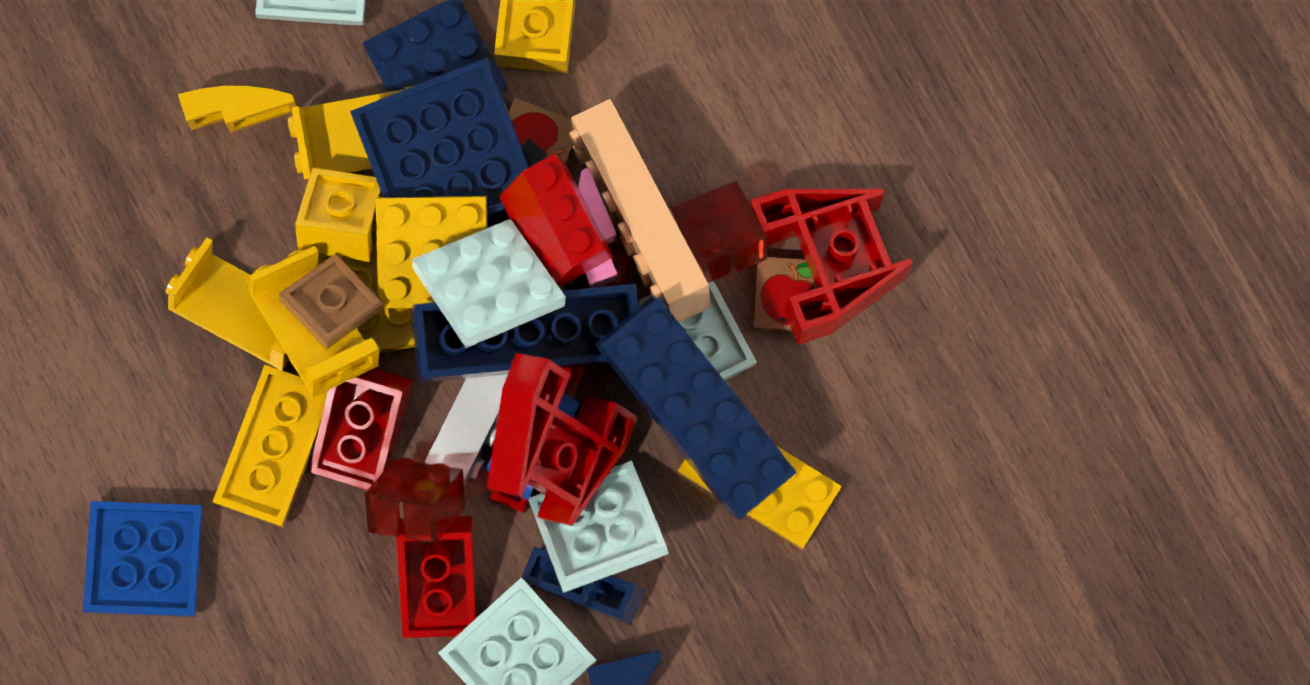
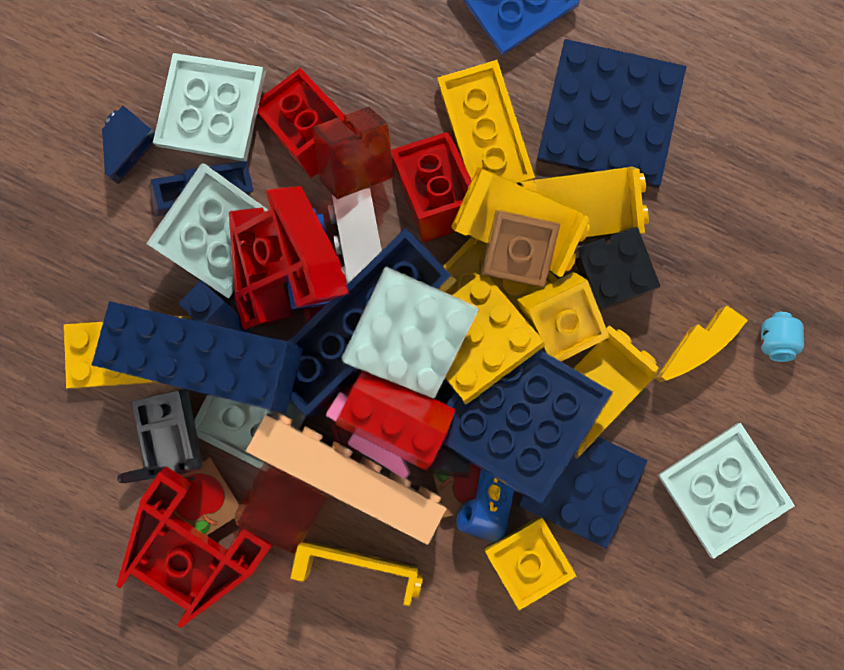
camera: 145 degrees right, 5 degrees up
(144, 378) = (611, 111): none -> dark blue plate
(157, 61) = (782, 337): none -> medium azure head
(256, 222) = (617, 268): none -> black piece
(539, 95) = (488, 512): none -> blue door
(654, 456) = (210, 308): none -> dark blue slope
(732, 168) = (308, 549): none -> yellow panel
(779, 371) = (165, 436): none -> black piece

